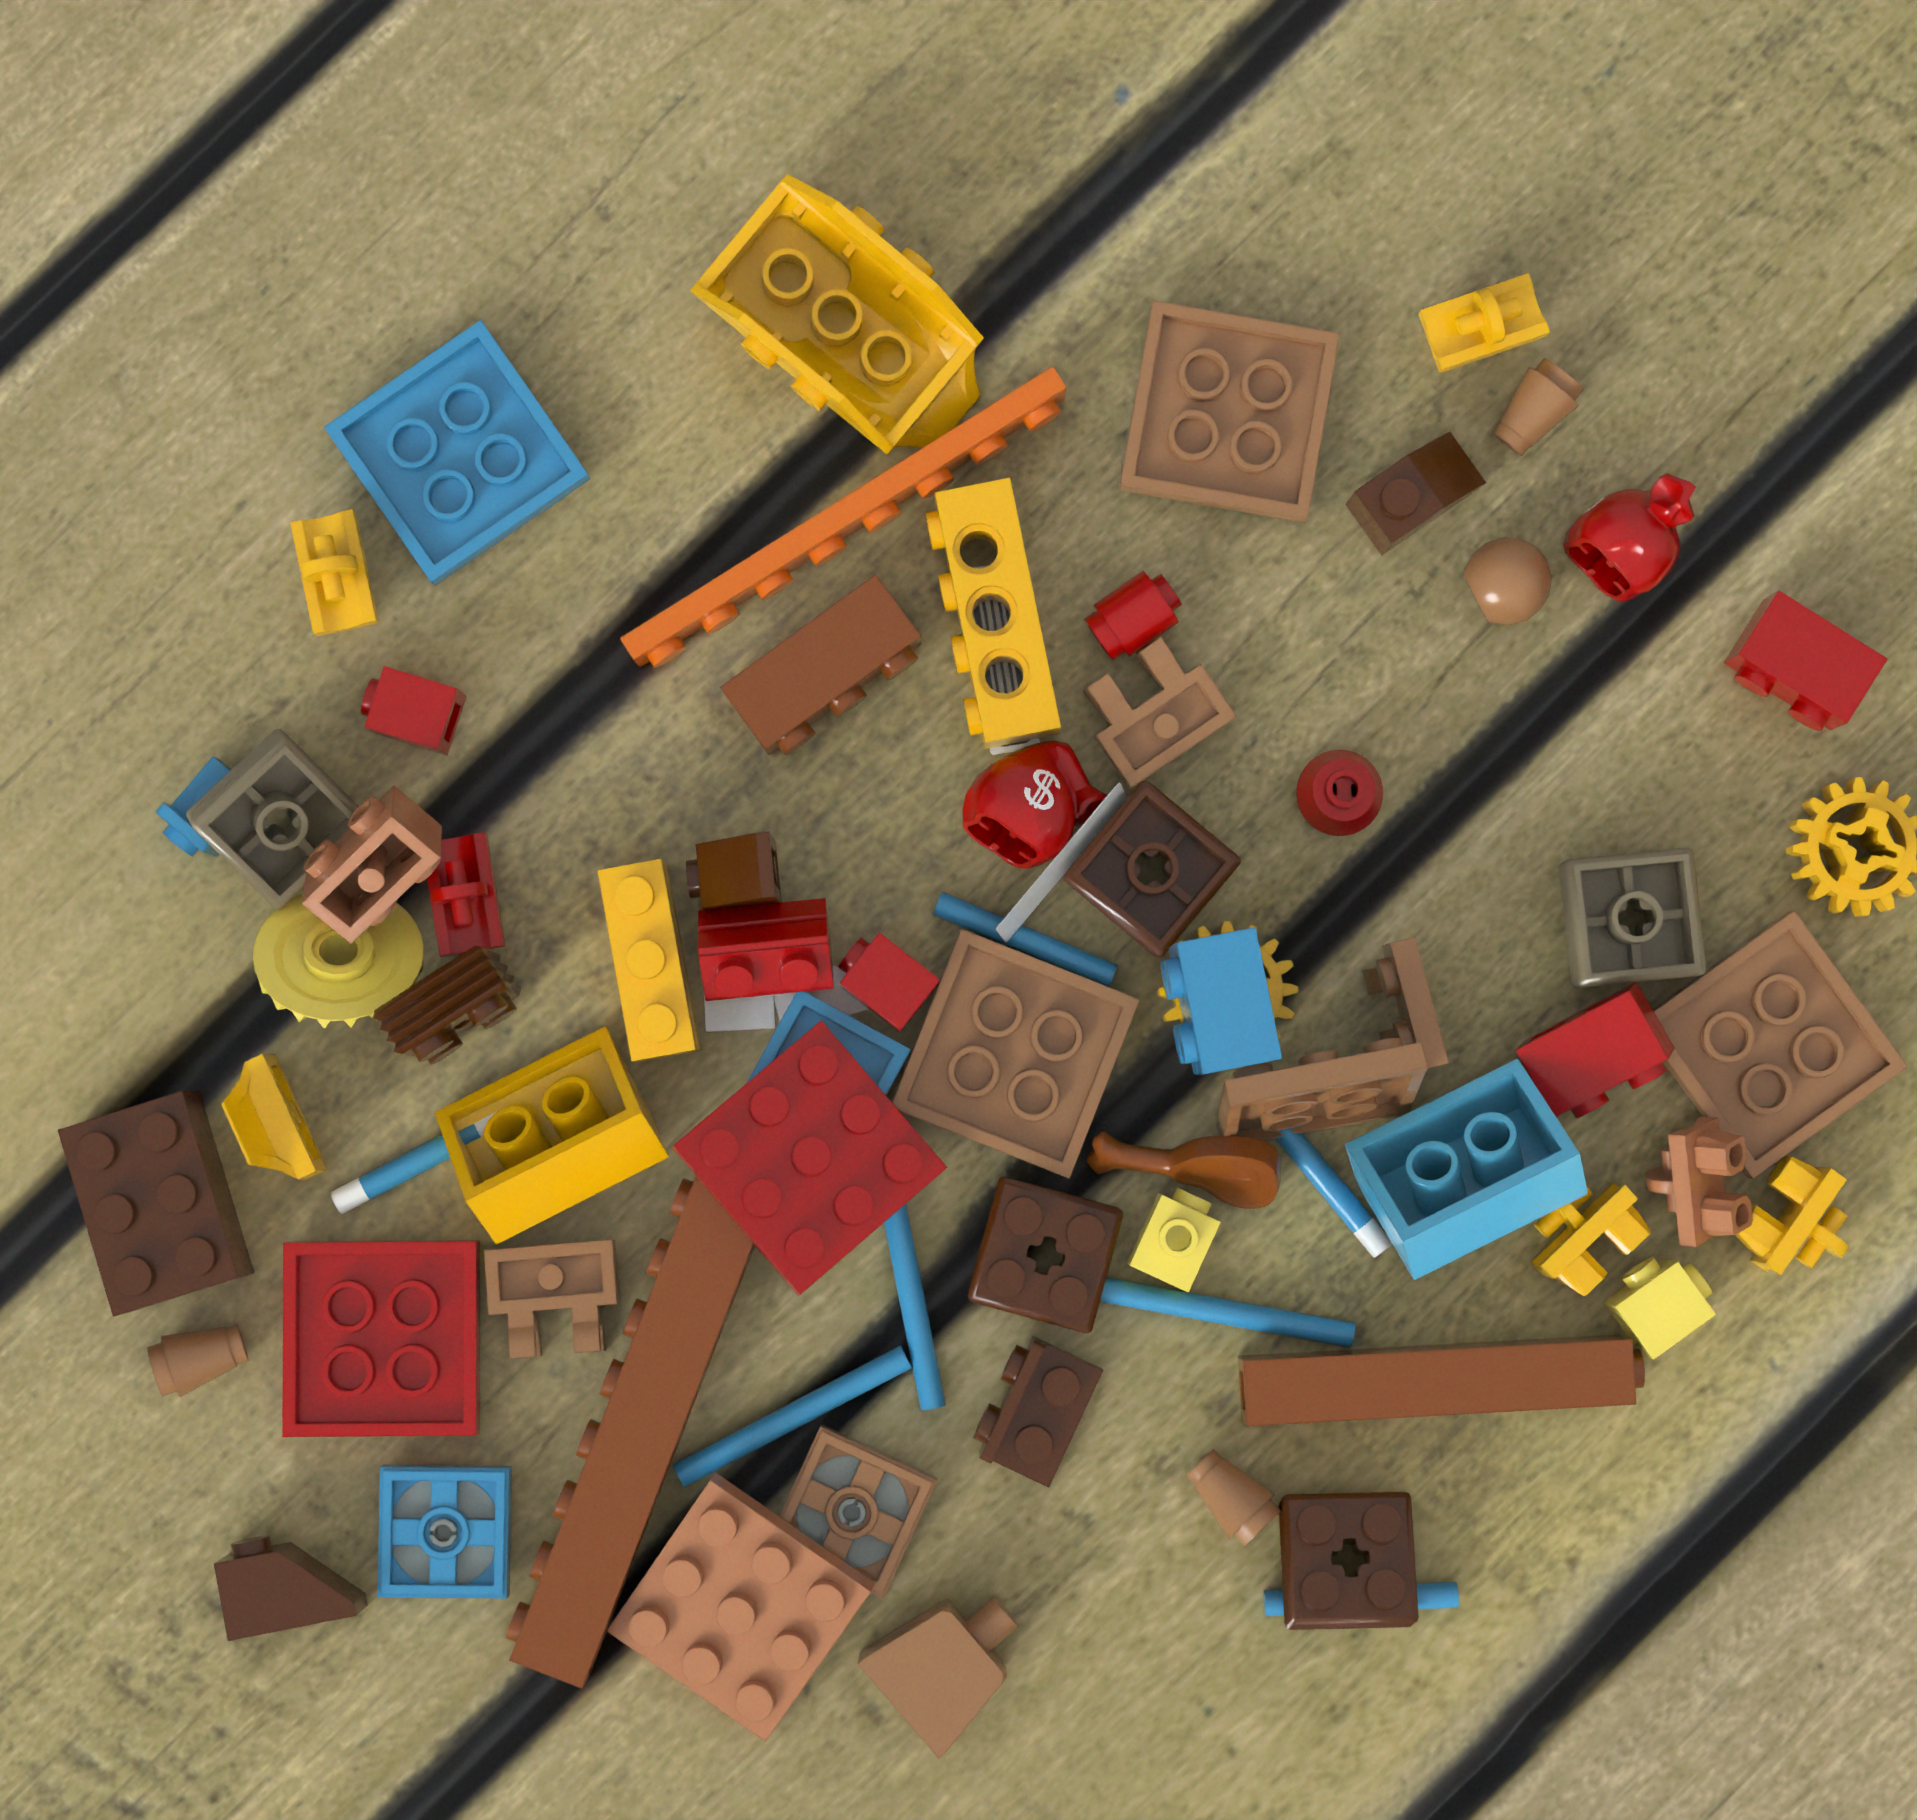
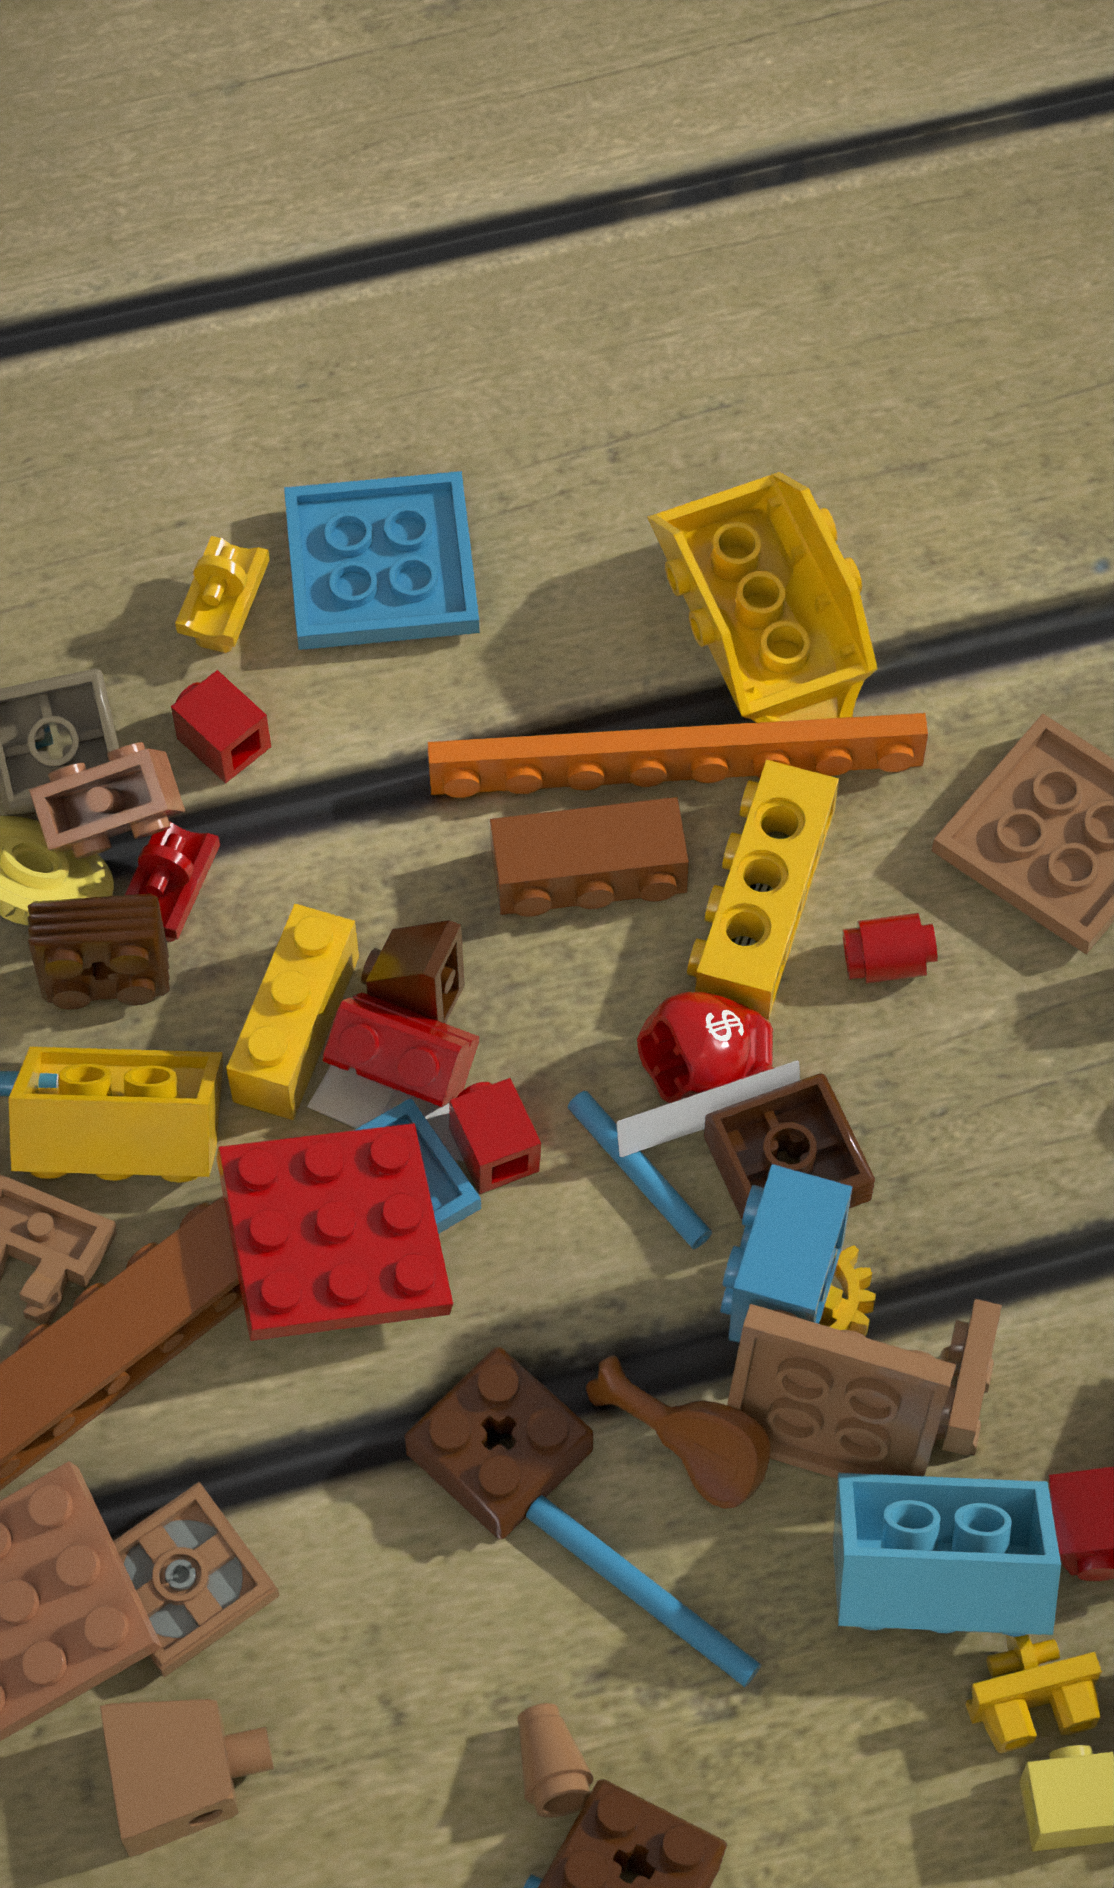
camera: 30 degrees right, 25 degrees down
(792, 1416) = (188, 1468): dark azure bar -> none
(914, 1310) = (350, 1428): dark azure bar -> none
(1015, 1053) = (574, 1255): medium nougat plate -> none
(1038, 1411) = (408, 1580): reddish brown bracket -> none
(1165, 724) = (867, 1049): medium nougat plate -> none
(1174, 1239) = (628, 1489): light yellow brick -> none
(1334, 1191) = (806, 1532): dark azure bar -> none
(1340, 812) = (1000, 1187): red cone -> none
(1439, 1380) = (816, 1754): dark orange brick -> none

